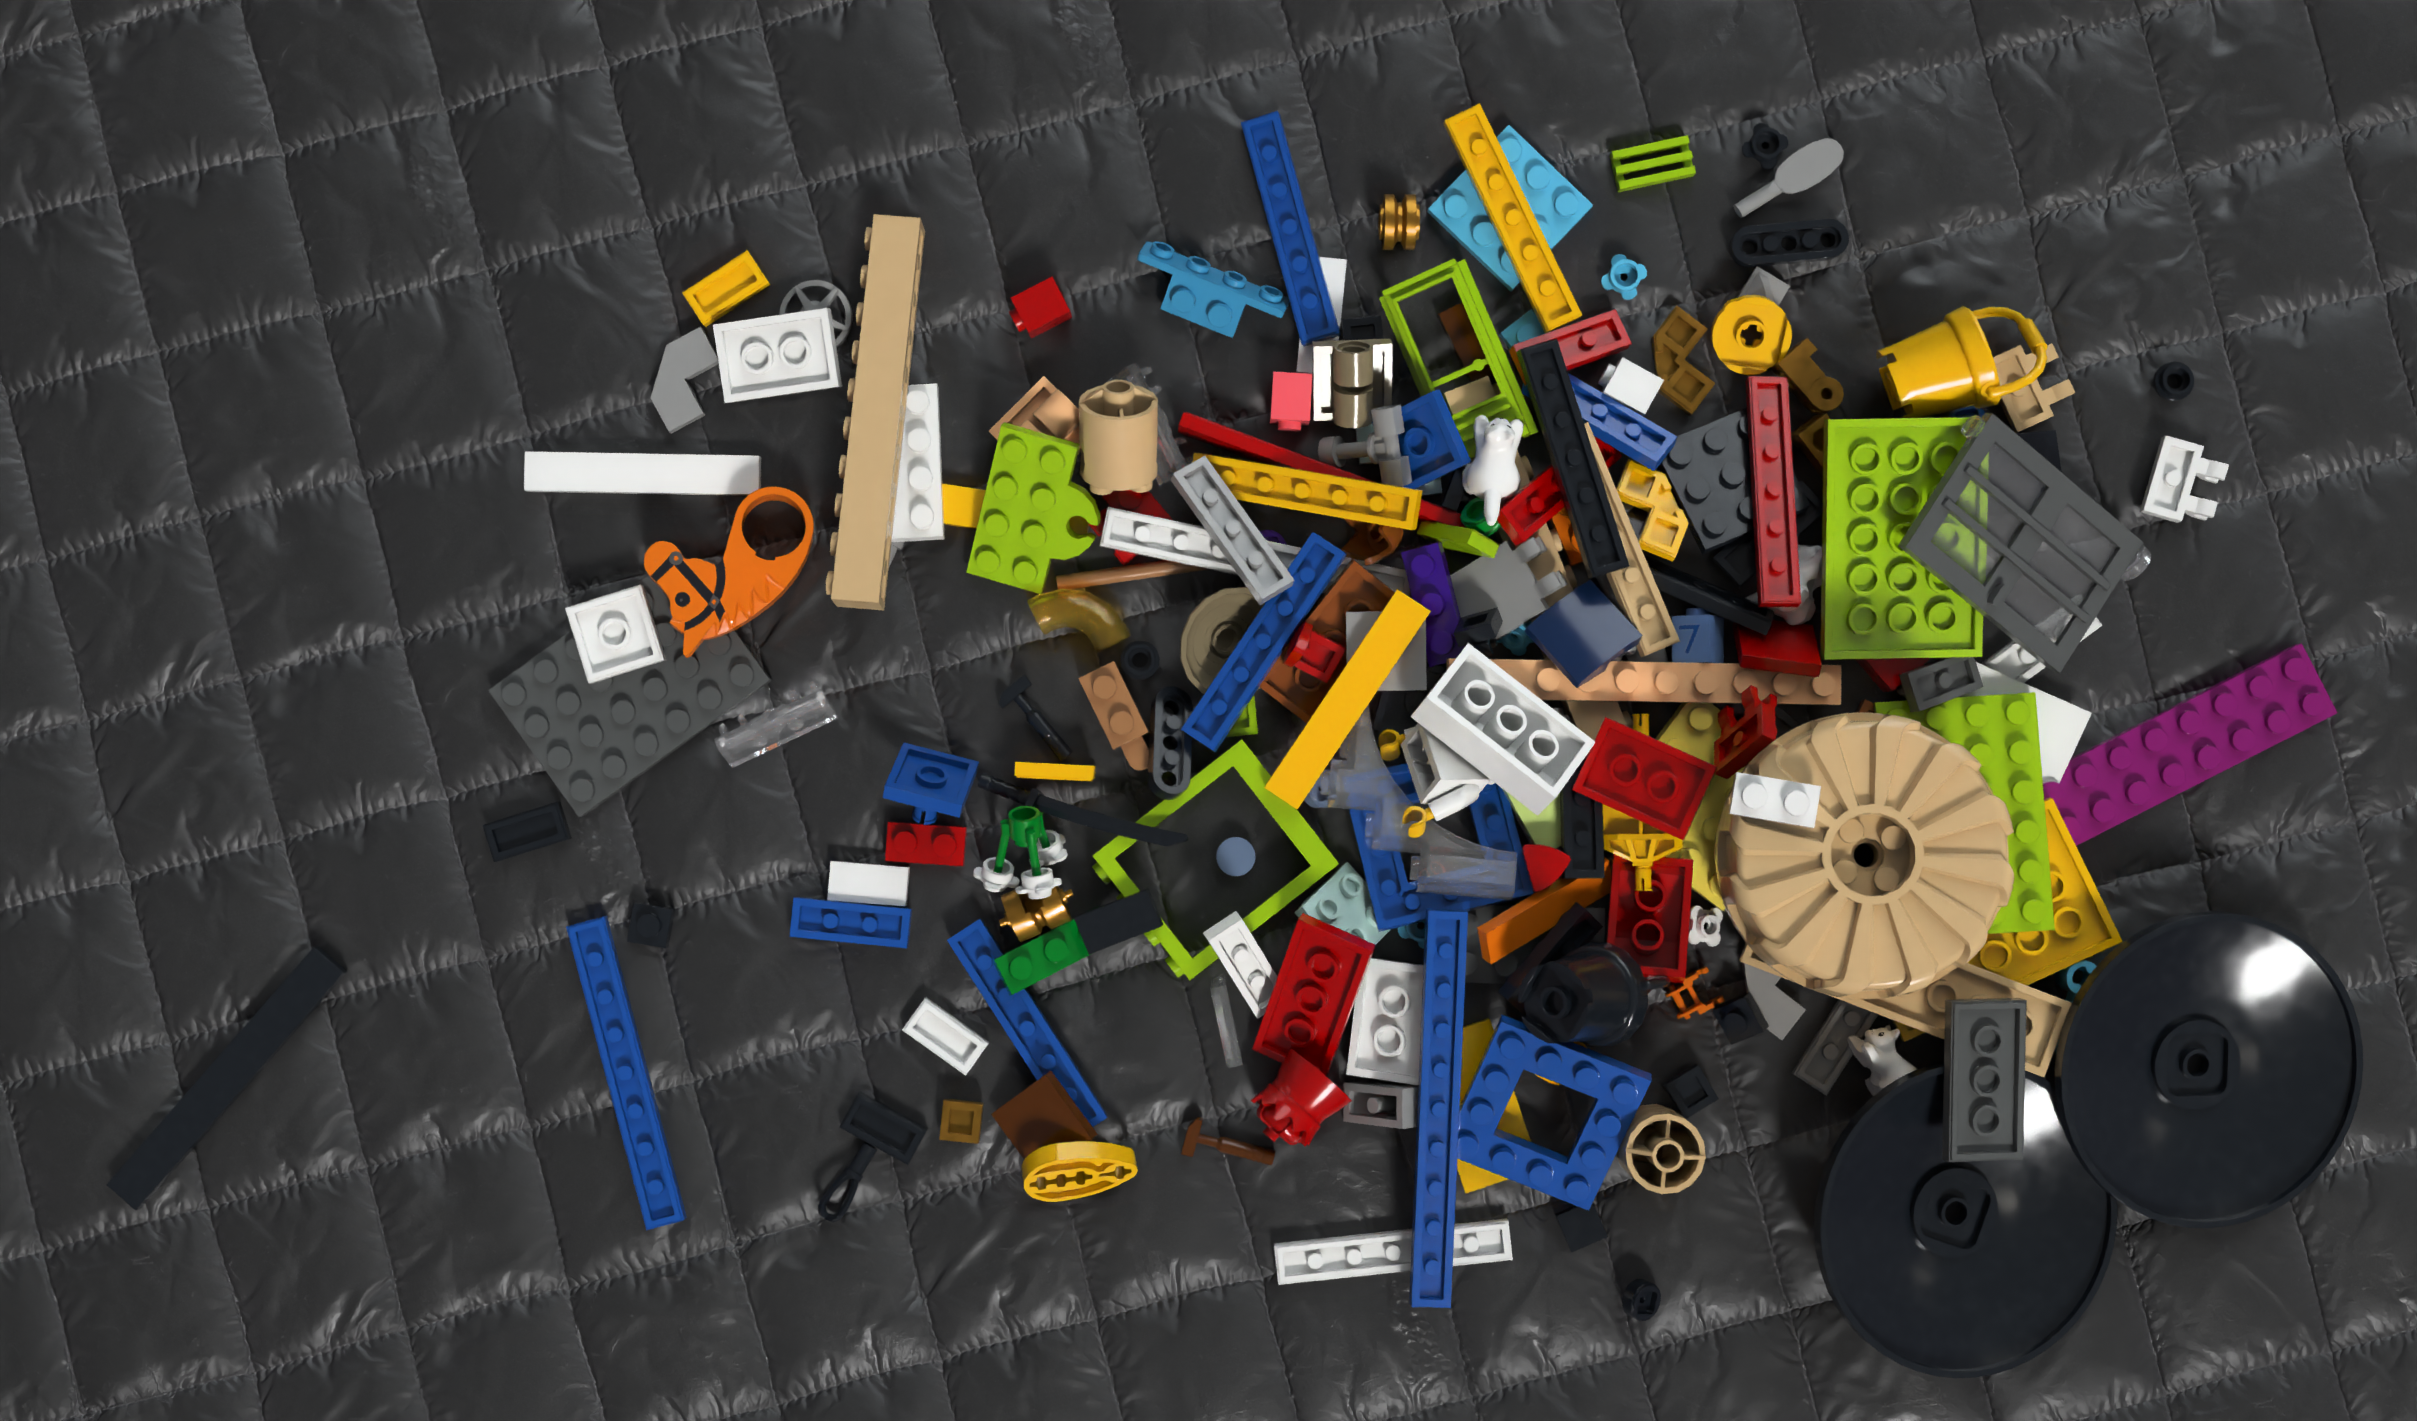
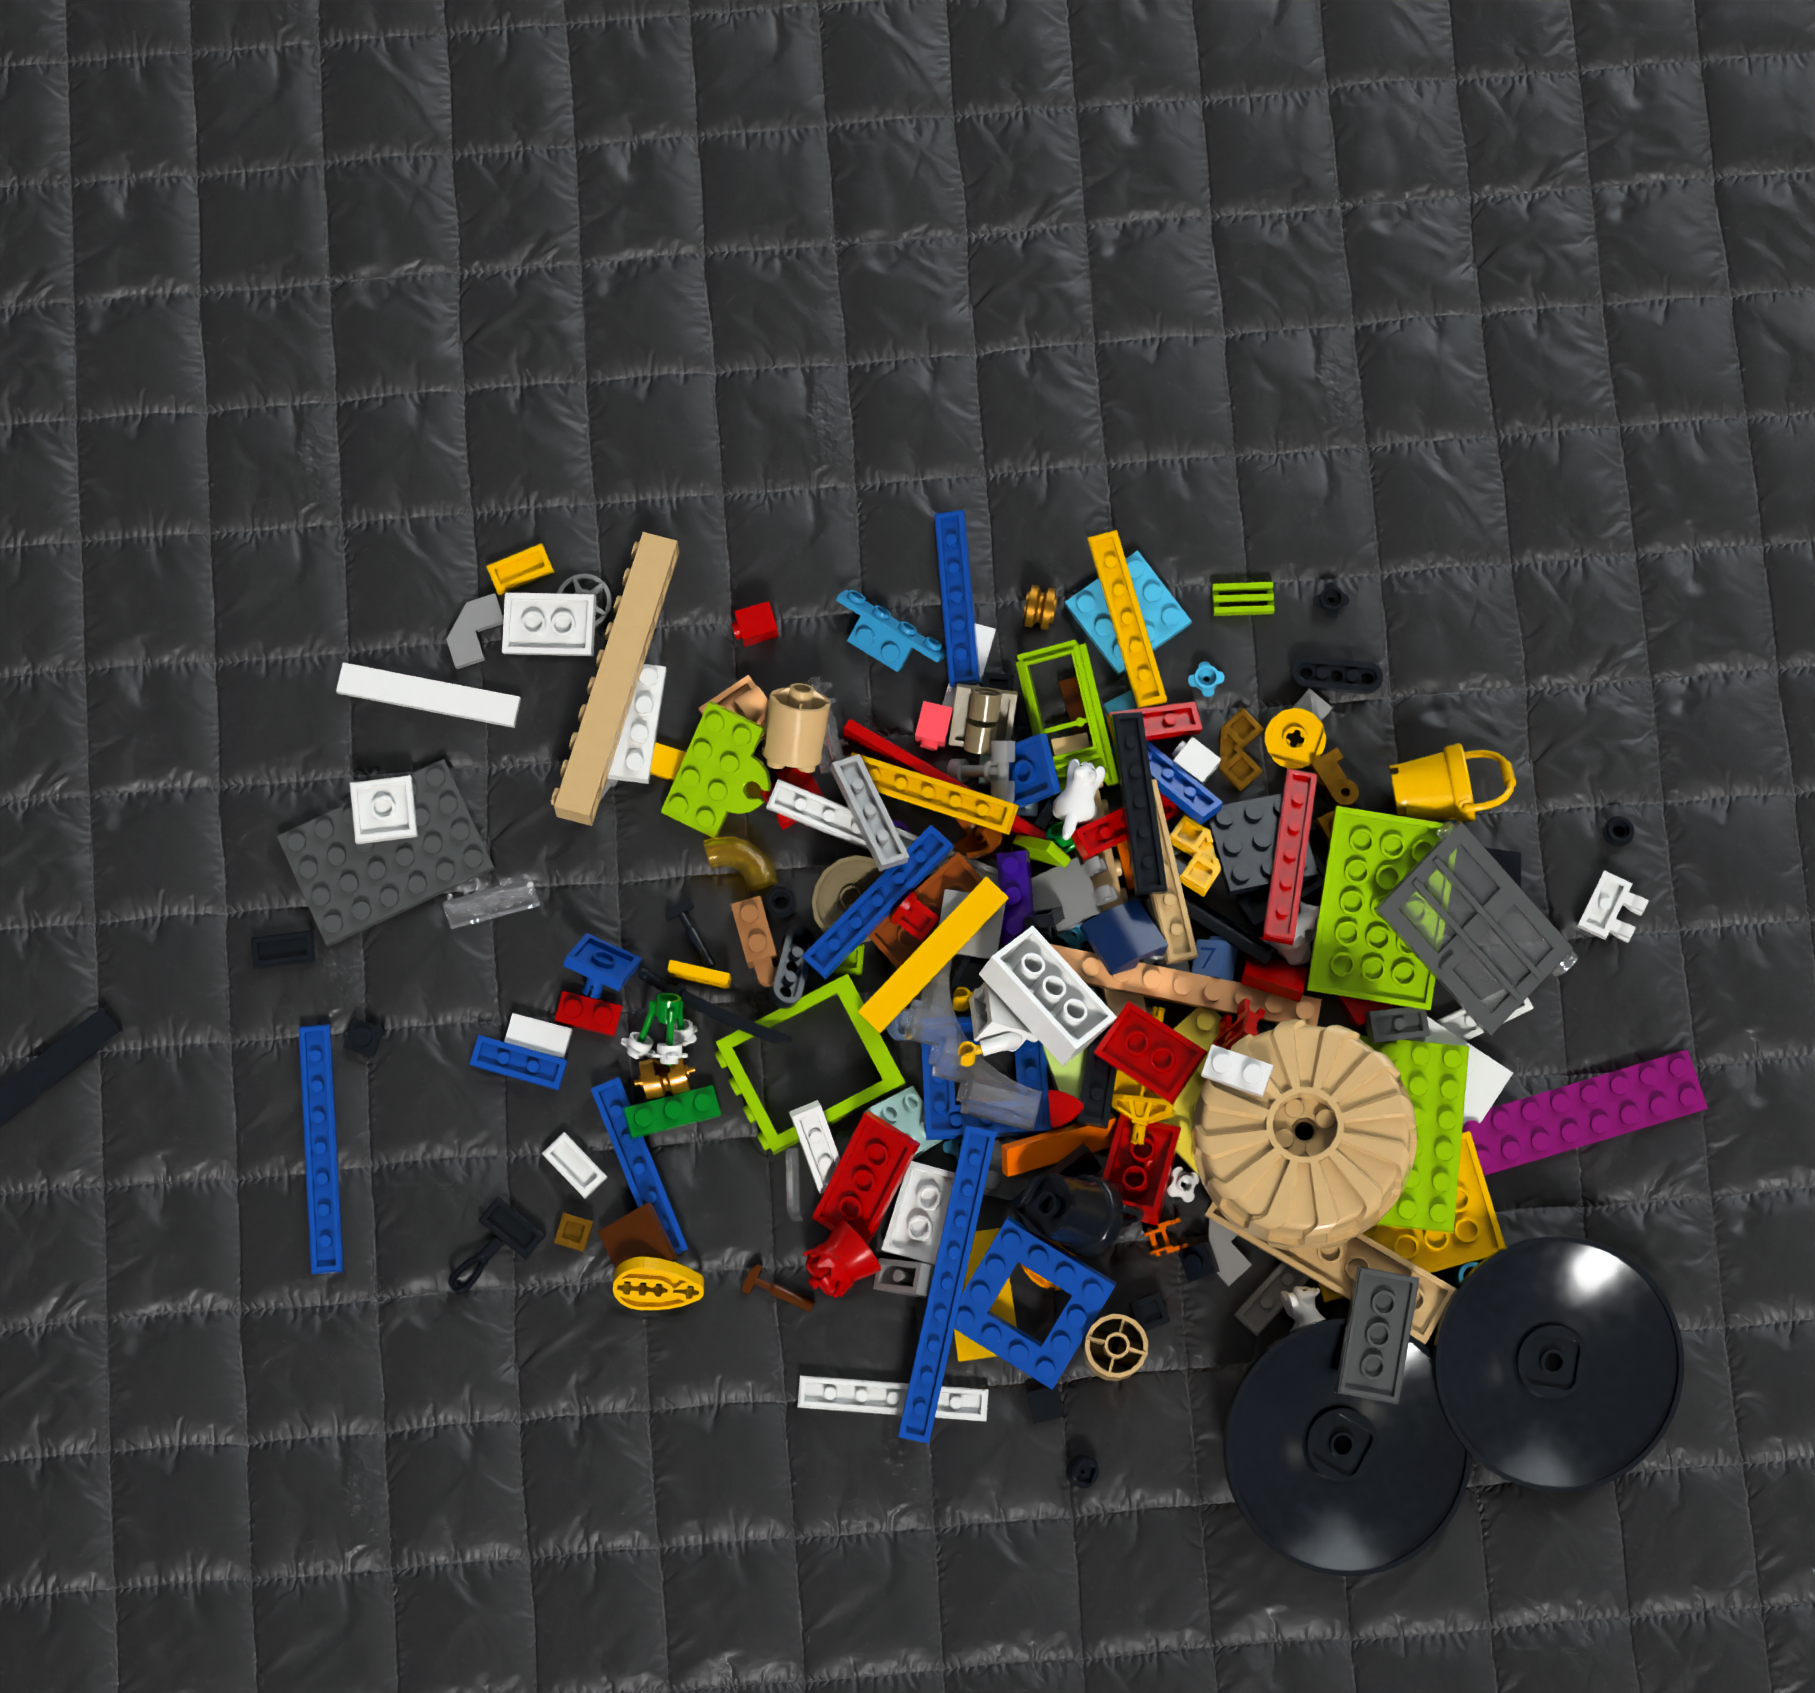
camera: 10 degrees right, 10 degrees down
(724, 596) = (474, 795): orange animal -> none
(1118, 921) = (726, 1095): black tile -> none
(1123, 574) = (783, 835): medium nougat piece -> none
(1235, 856) = (827, 1066): sand blue tile -> none
(1796, 174) = (1351, 625): light grey piece -> none
(2030, 403) = (1498, 821): tan plate -> none

